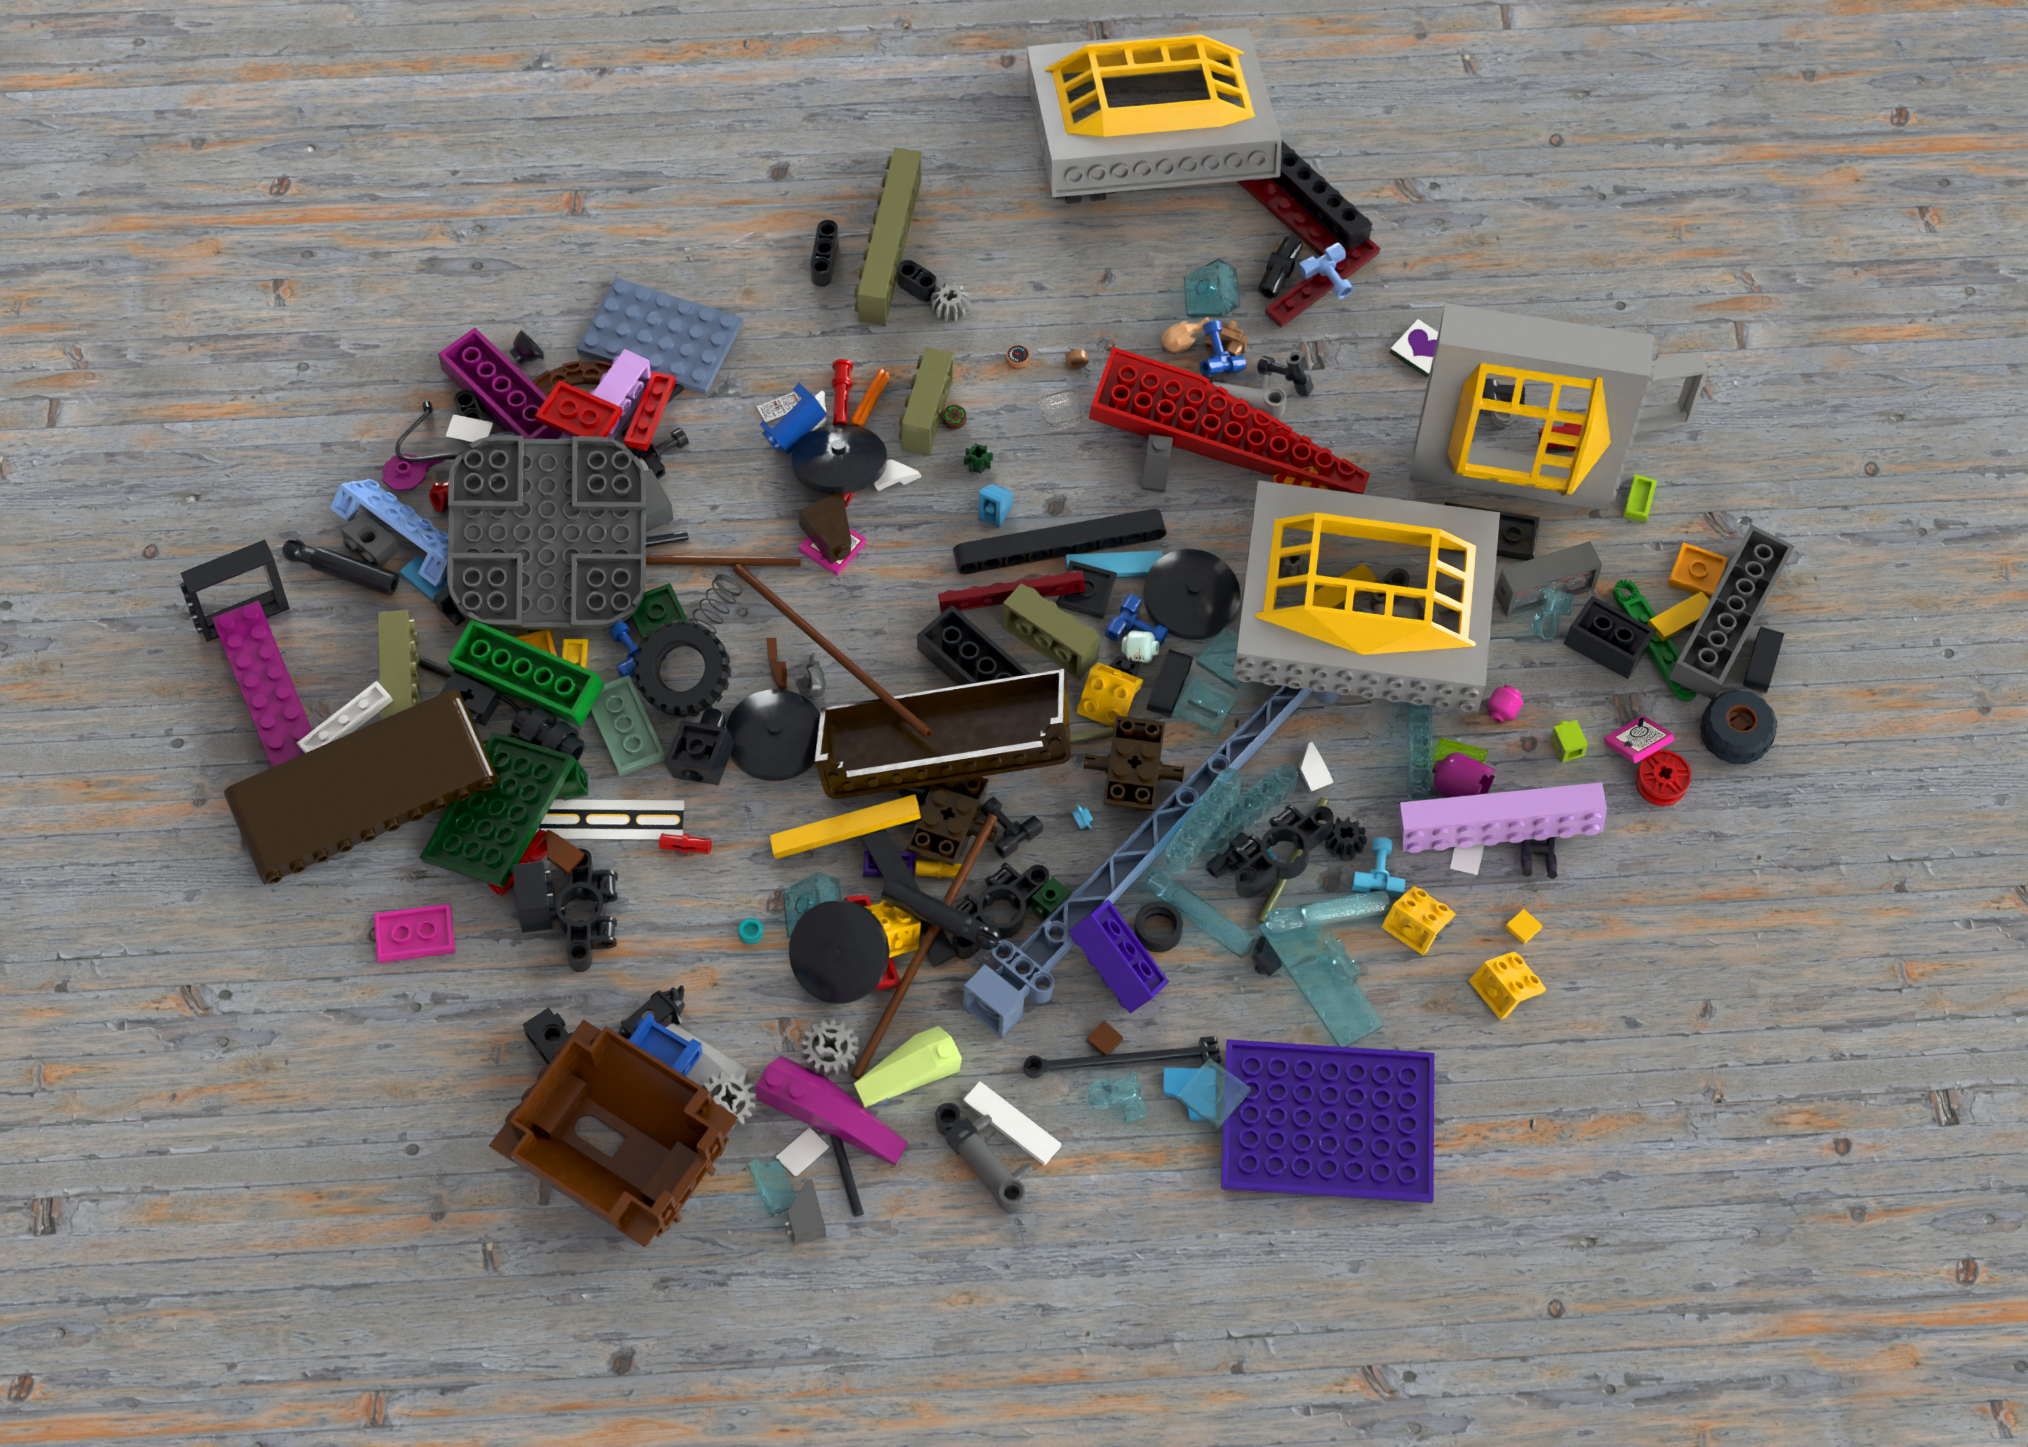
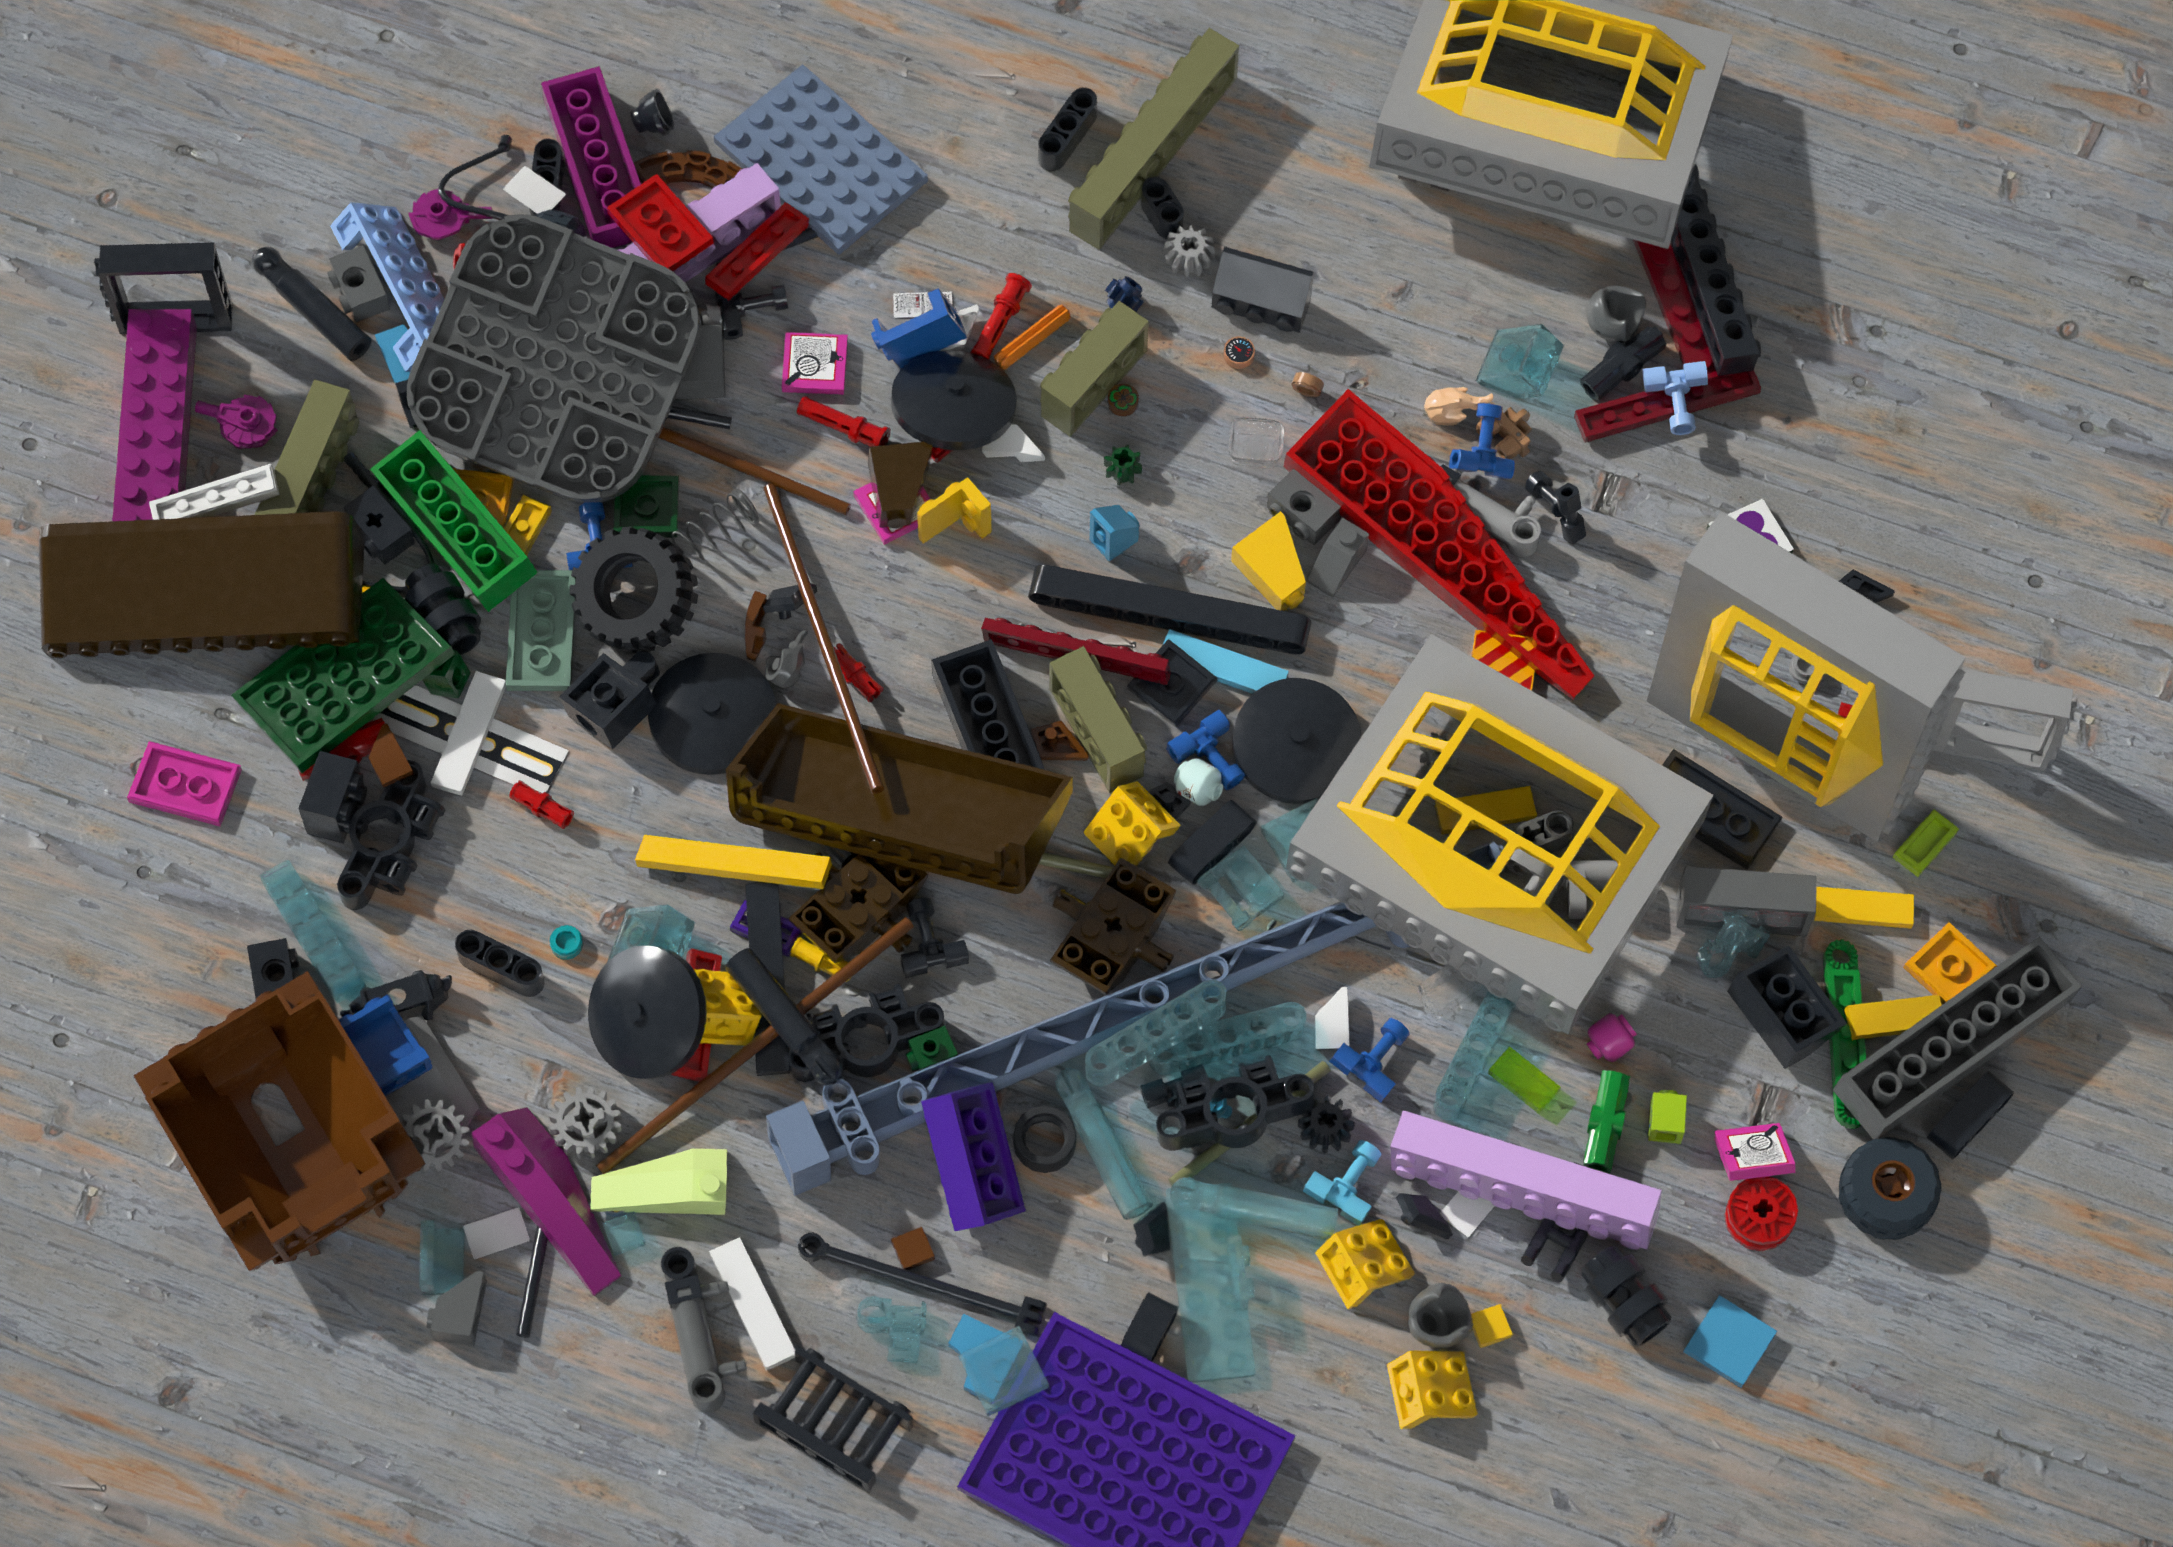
camera: 25 degrees right, 5 degrees up
(331, 666) = (244, 422): none -> magenta piece
(560, 994) = (312, 931): none -> clear light blue beam
(607, 816) = (468, 733): none -> white tile
(721, 971) = (492, 950): none -> black beam
(726, 473) = (814, 363): none -> tile
(767, 504) = (856, 428): none -> red pin
(788, 638) = (785, 600): none -> black piece
(875, 672) = (855, 673): none -> red pin
(884, 522) = (958, 501): none -> yellow bracket
(895, 1113) = (624, 1233): none -> clear light blue tile
(918, 345) = (1126, 291): none -> dark blue gear
(1015, 307) = (1262, 290): none -> slope
(1031, 659) = (1057, 743): none -> reddish brown piece
(1082, 817) = (1022, 965): medium azure plate -> none
(1110, 430) = (1297, 491): none -> dark grey brick
(1114, 484) = (1271, 563): none -> yellow slope
(1119, 1201) = (832, 1452): none -> black fence
(1260, 235) = (1616, 313): none -> dark grey piece
(1297, 1021) = (1150, 1326): none -> black beam
(1353, 787) = (1368, 1065): none -> blue bar
(1440, 870) = (1422, 1214): none -> black piece
(1462, 776) = (1505, 1110): magenta cylinder -> none
(1490, 932) = (1446, 1313): none -> dark grey piece
(1529, 757) = (1606, 1121): none -> green piece
(1587, 860) = (1636, 1311): none -> black piece
(1628, 553) = (1864, 907): none -> yellow tile
(1686, 870) = (1730, 1341): none -> dark azure tile

